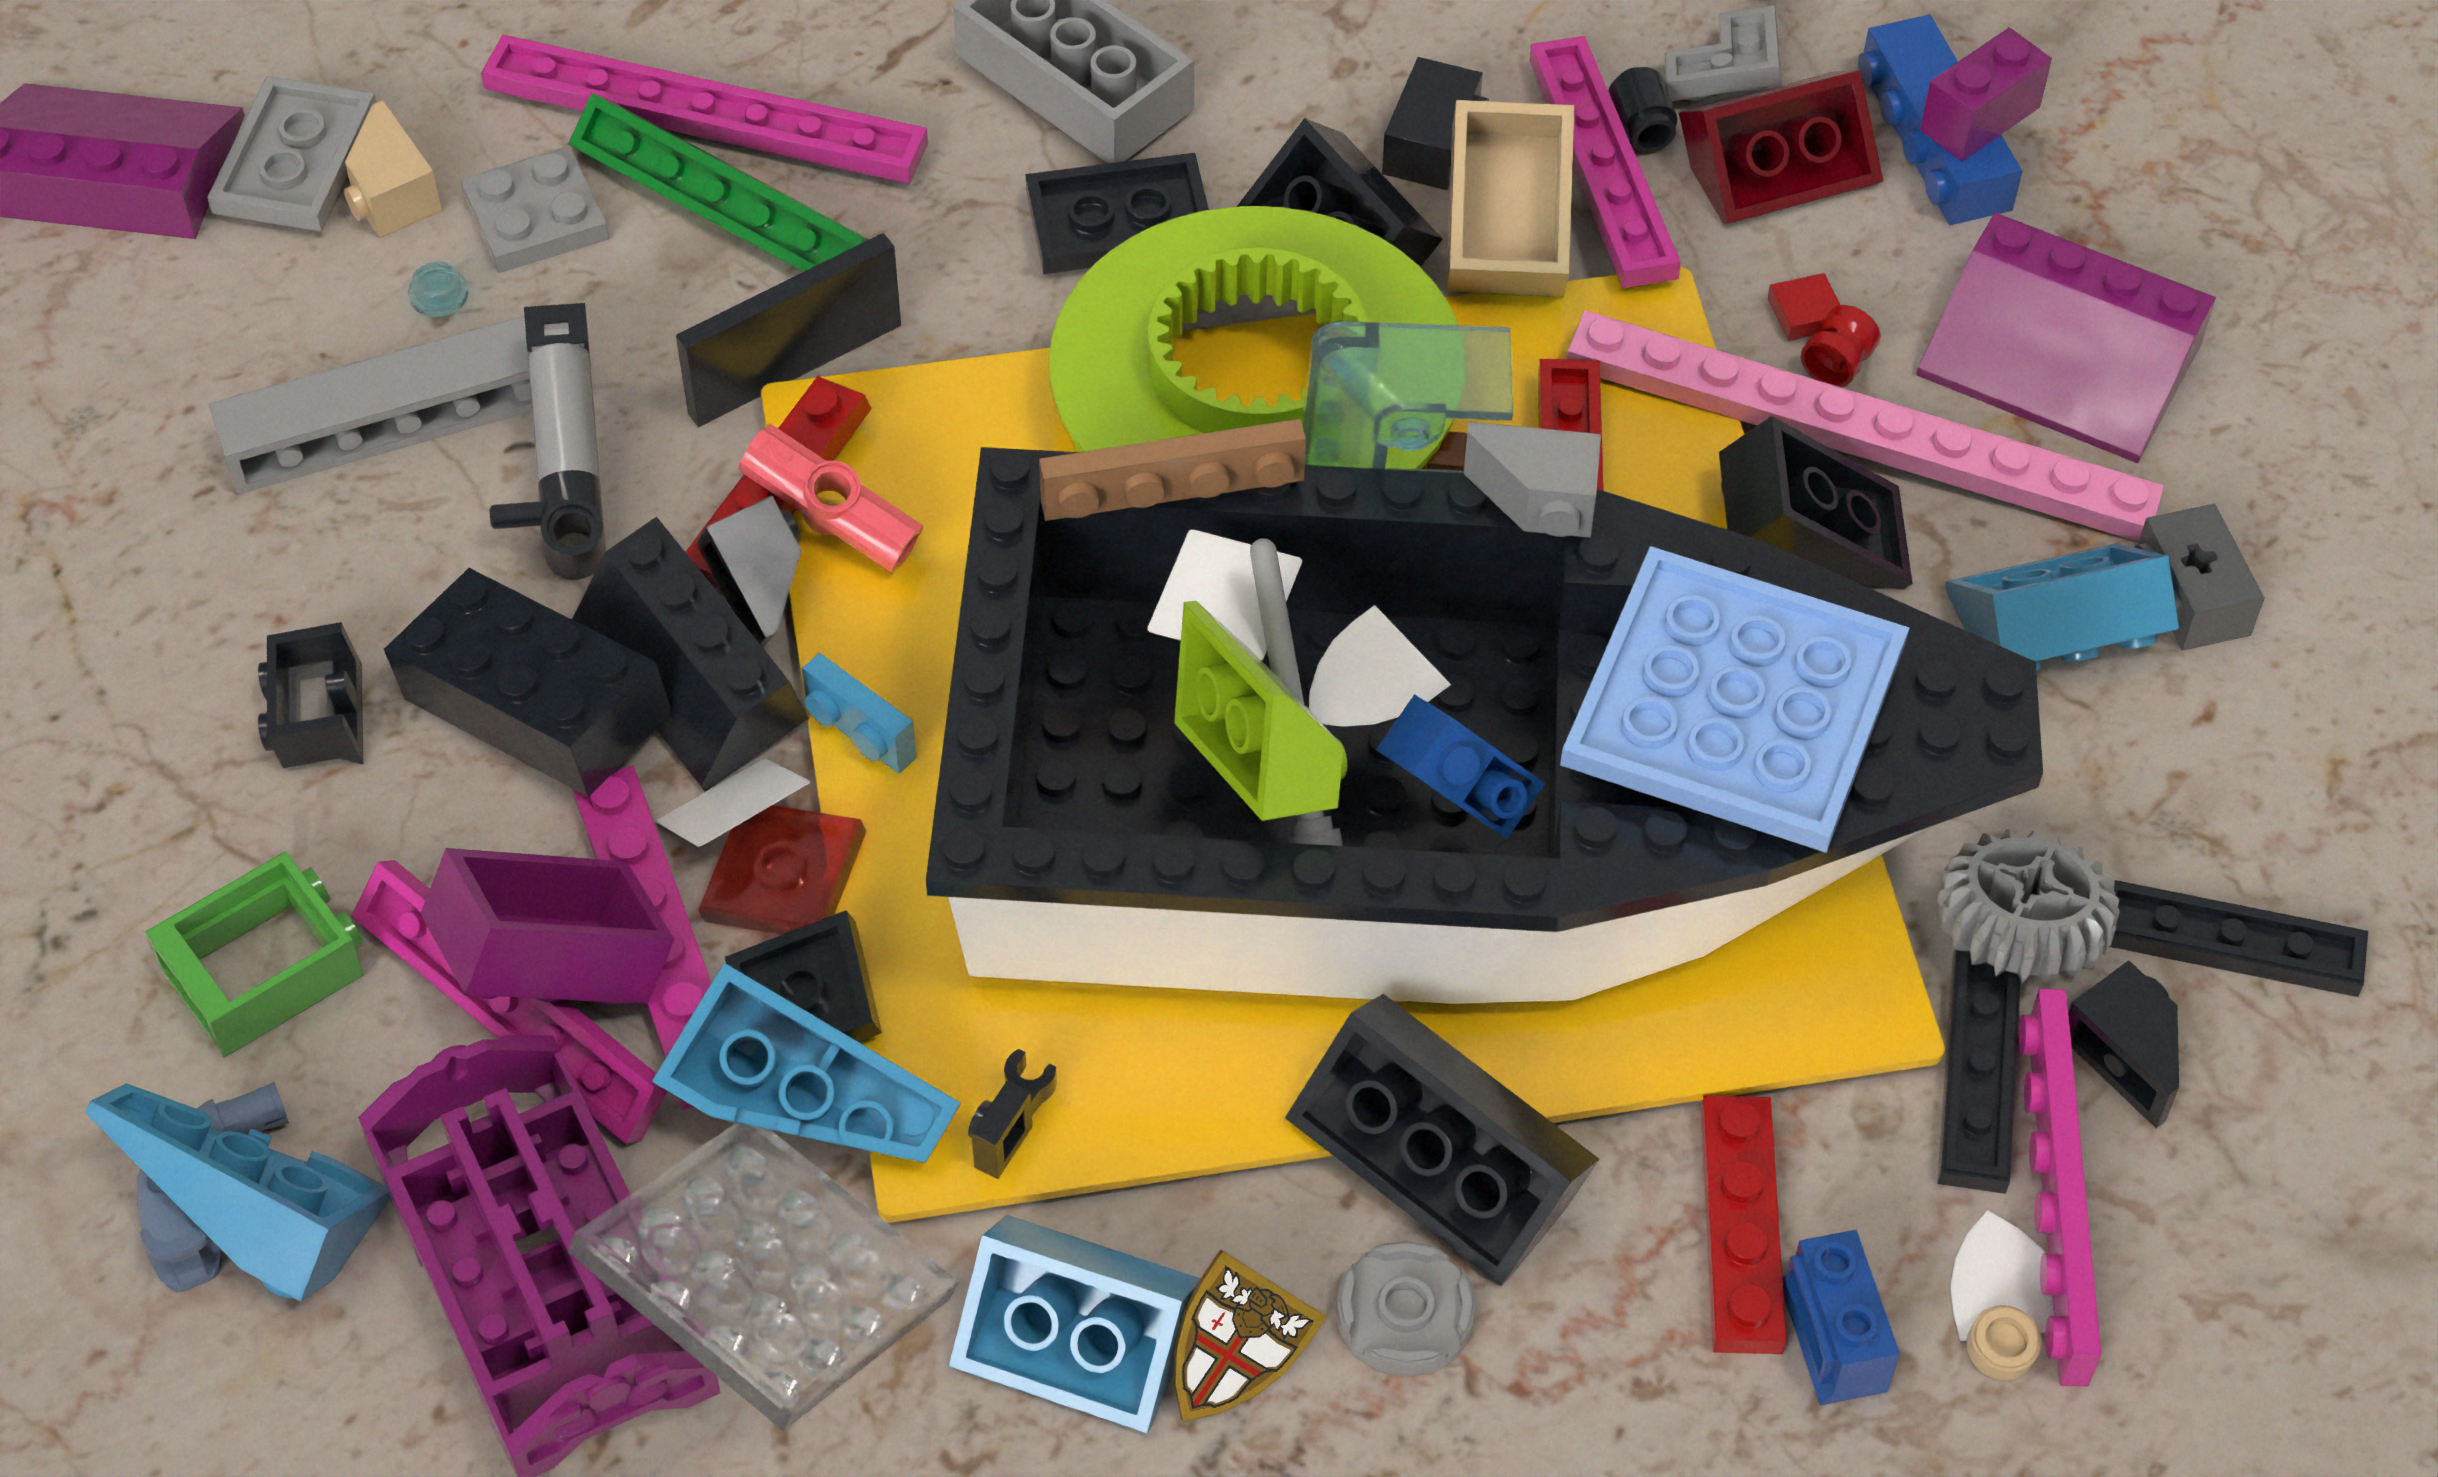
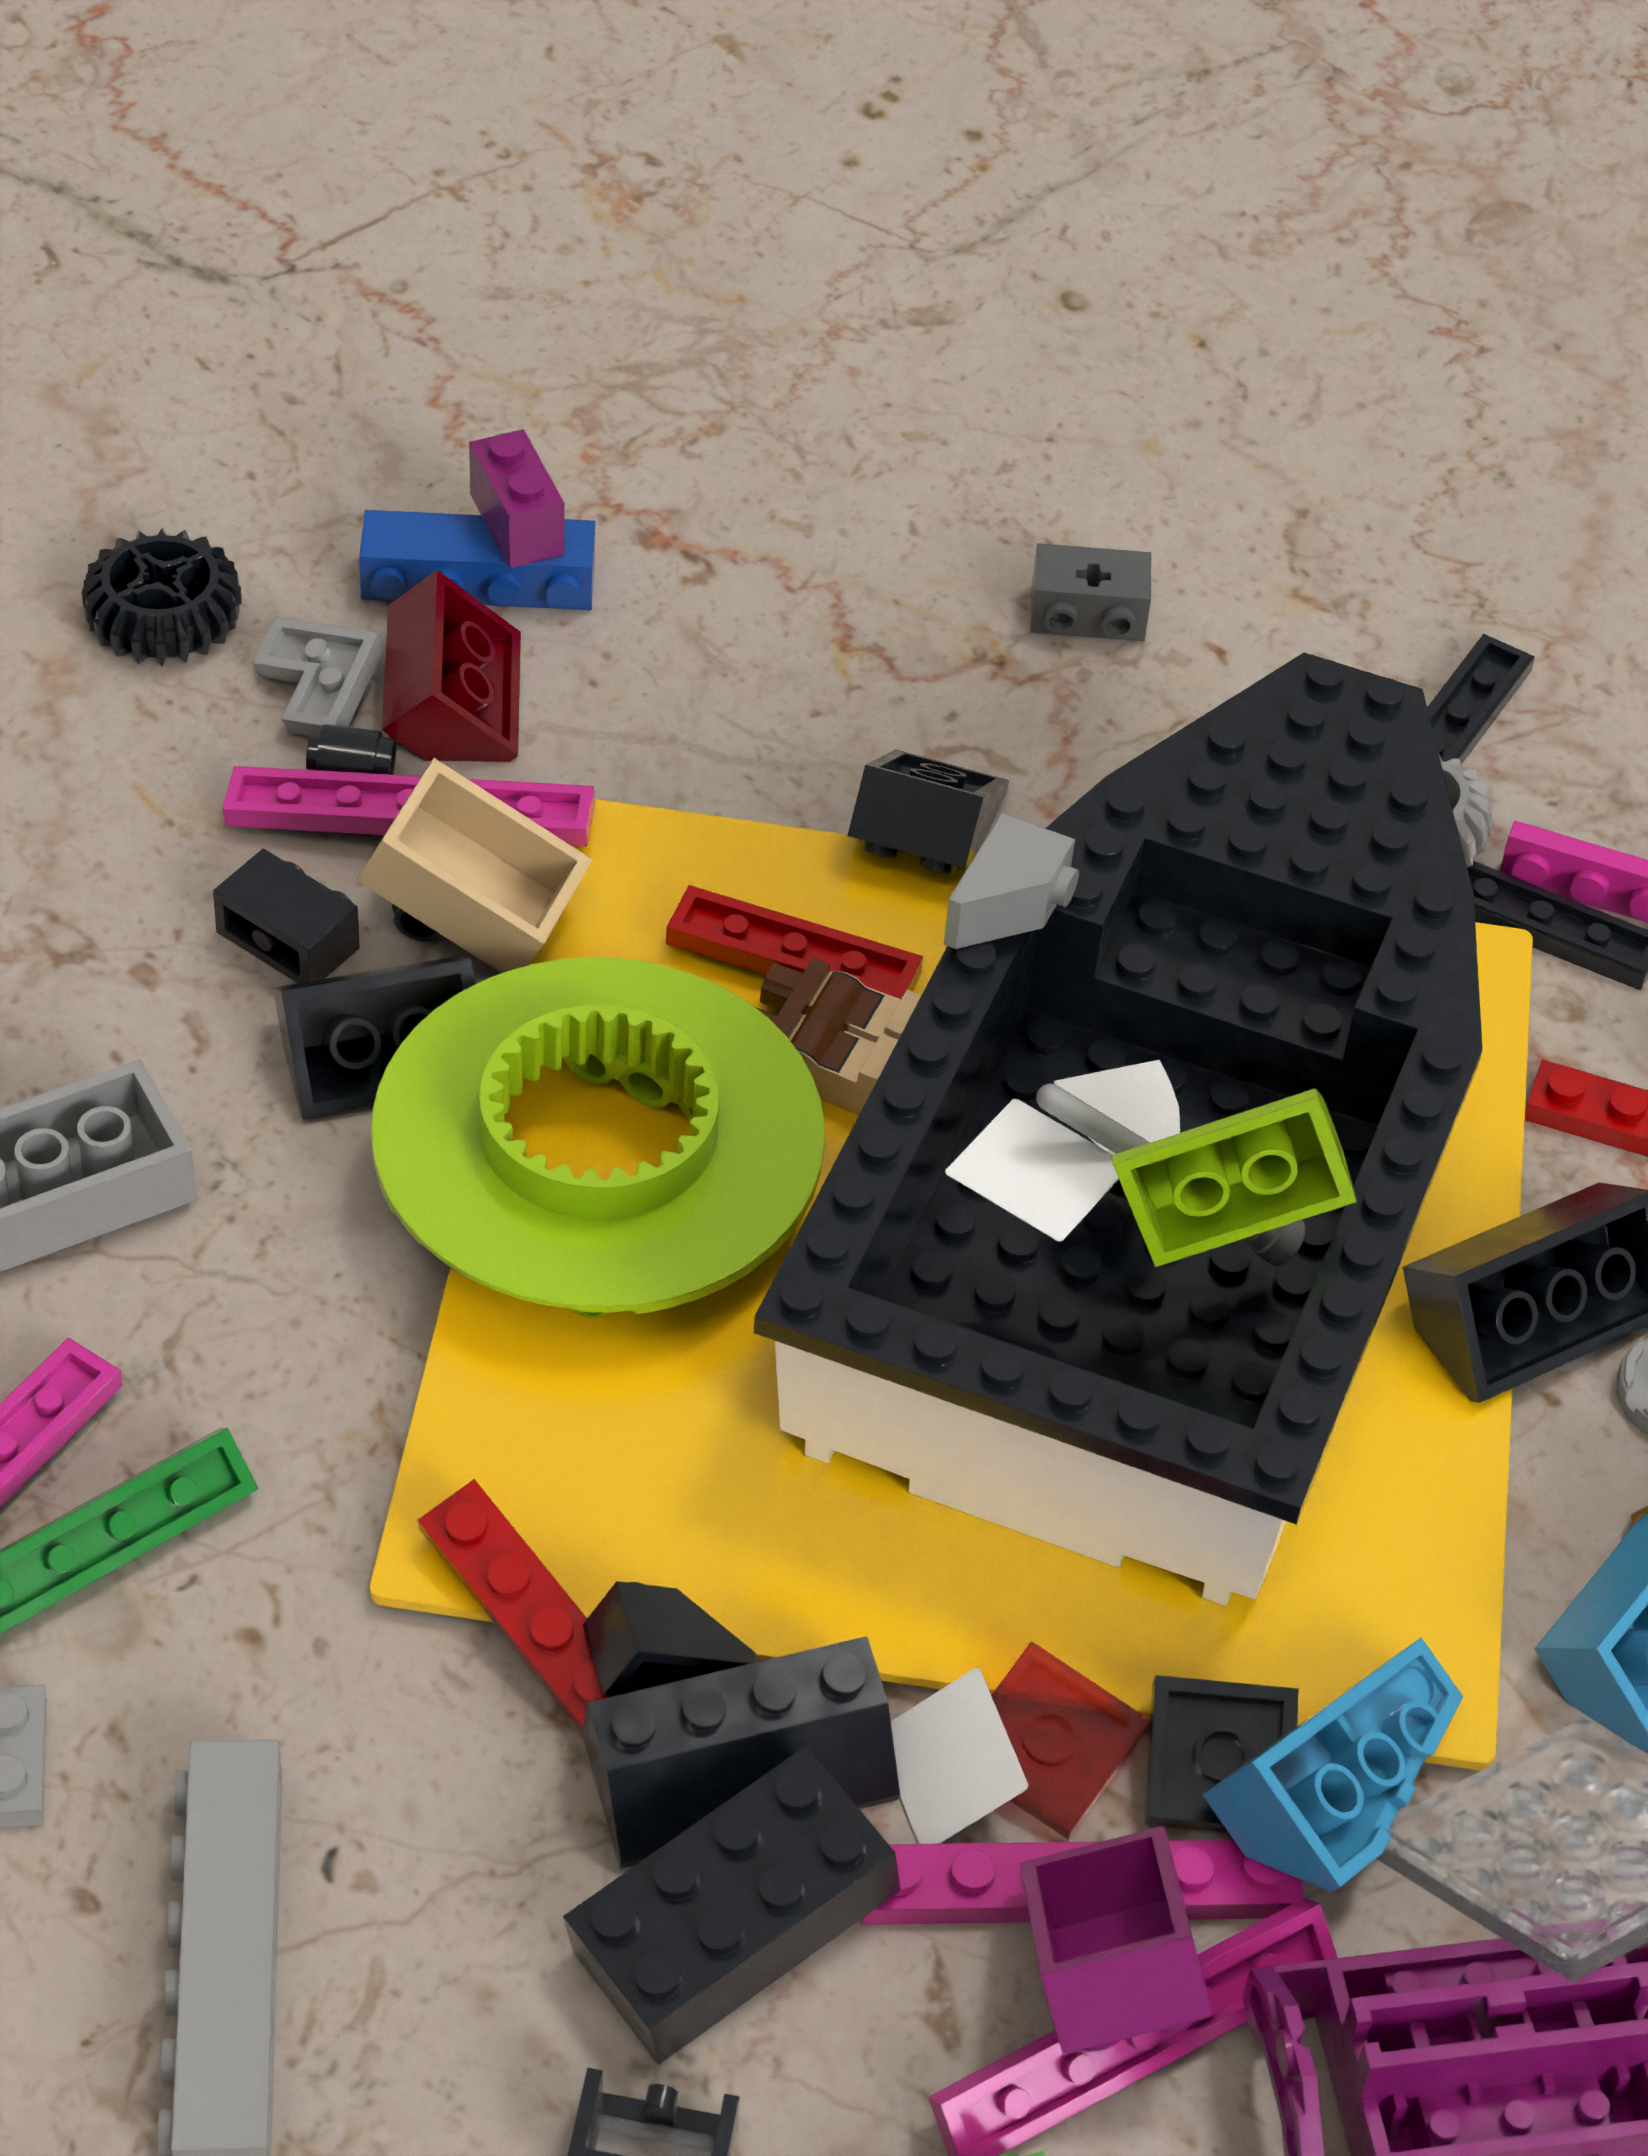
camera: 75 degrees left, 5 degrees down
(437, 289) = (59, 1886): clear light blue plate -> none
(563, 442) = (406, 1782): piece -> none
(789, 329) = (334, 1531): black tile -> none
(800, 474) = (607, 1546): coral piece -> none
(858, 712) = (898, 1603): dark azure plate -> none
(1003, 1124) = (1436, 1609): black plate -> none
(1095, 208) = (273, 1210): black plate -> none
(1172, 469) = (893, 1172): medium nougat plate -> none
(1397, 386) = (861, 977): clear light blue windscreen -> none
(1460, 766) = (1263, 1074): blue slope -> none
(1736, 698) = (1308, 839): light blue plate -> none
(1802, 304) = (653, 735): red tile -> none
(1841, 345) = (719, 718): red wheel -> none
(1868, 426) = (818, 749): bright pink plate -> none
(2067, 337) = (782, 575): slope -> none
(2070, 603) = (1085, 684): dark azure slope -> none
(2130, 1039) = (1560, 801): black slope -> none

